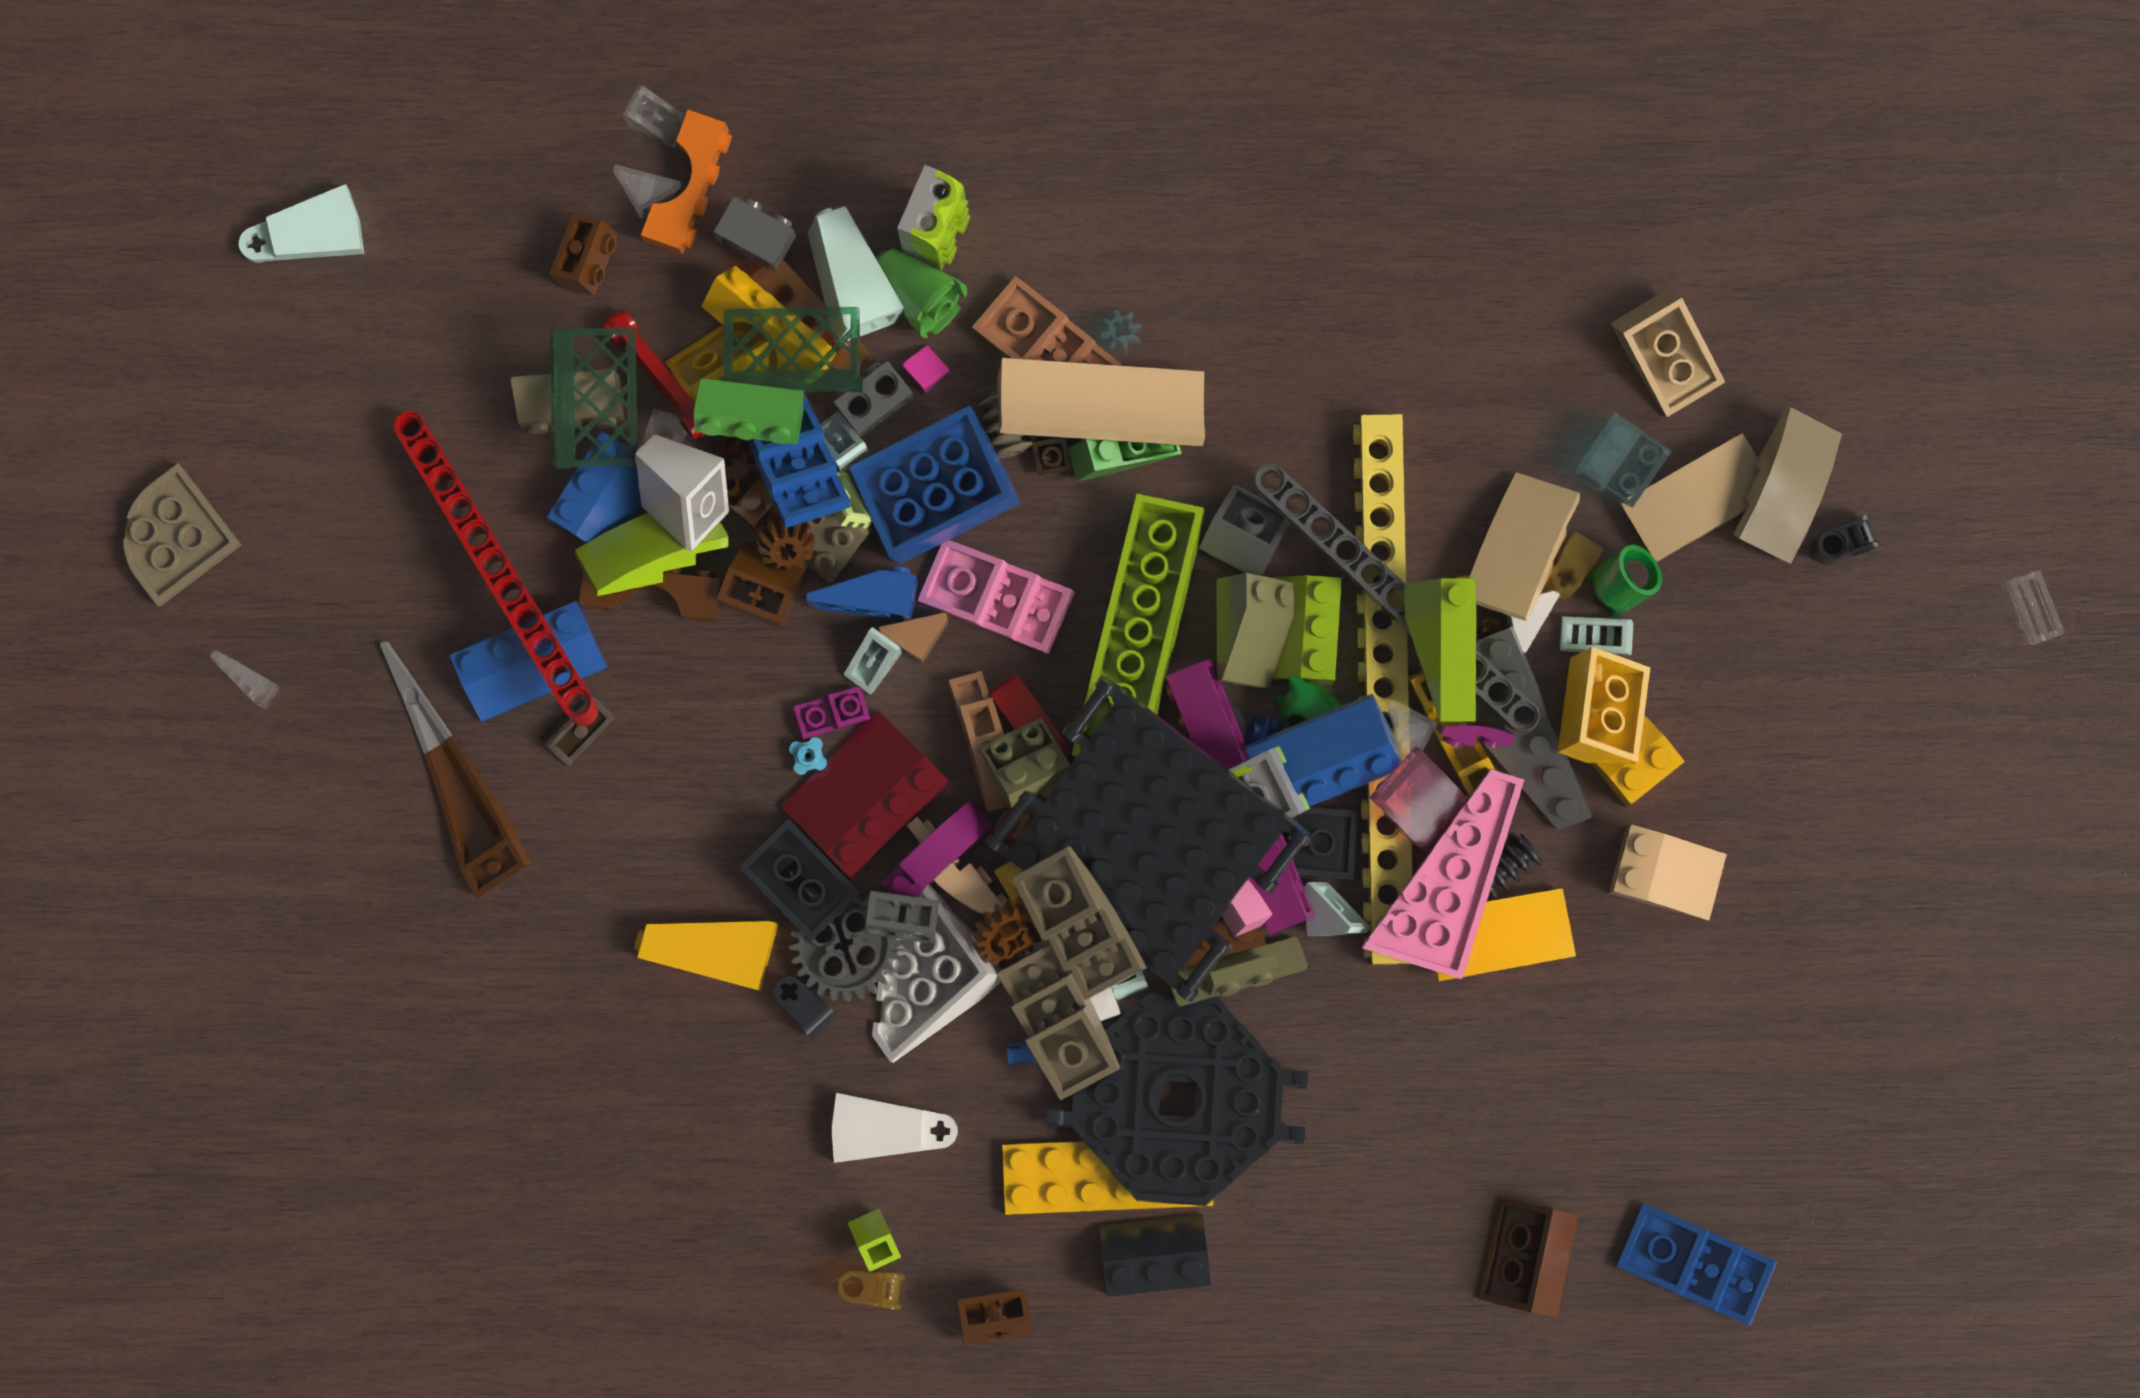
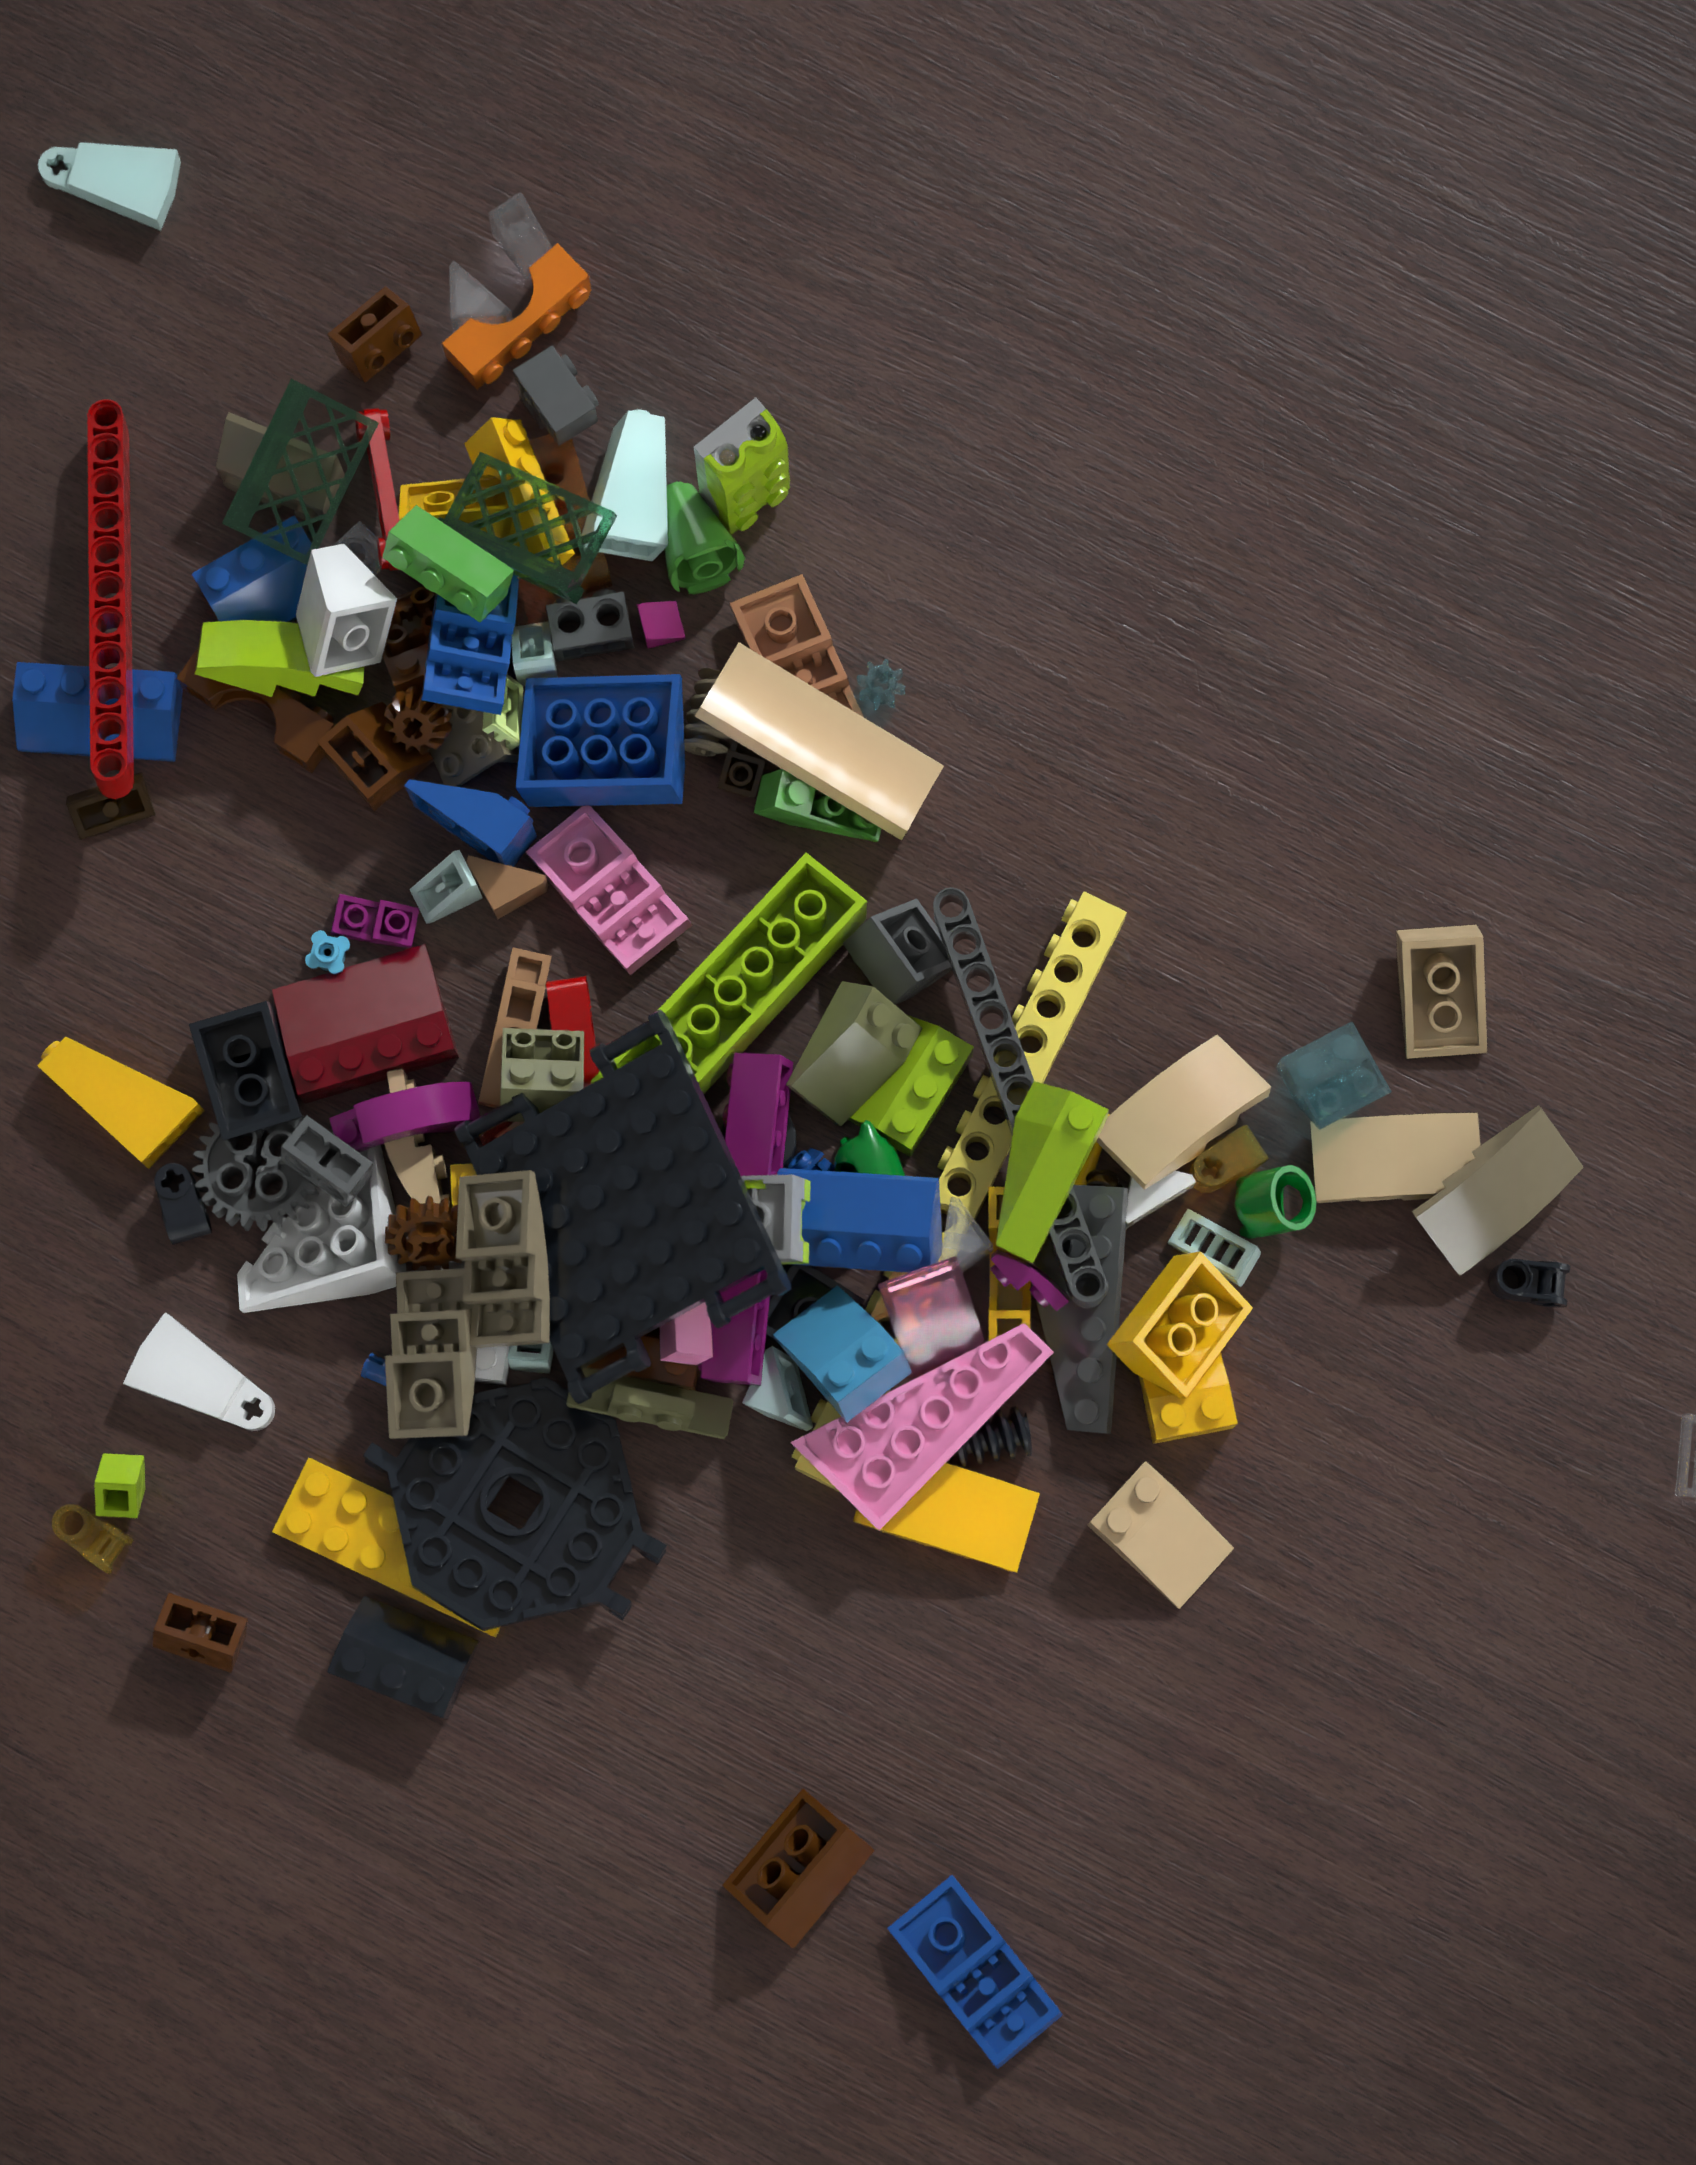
camera: 25 degrees right, 5 degrees down
(1366, 859) = (844, 1352): none -> dark azure slope

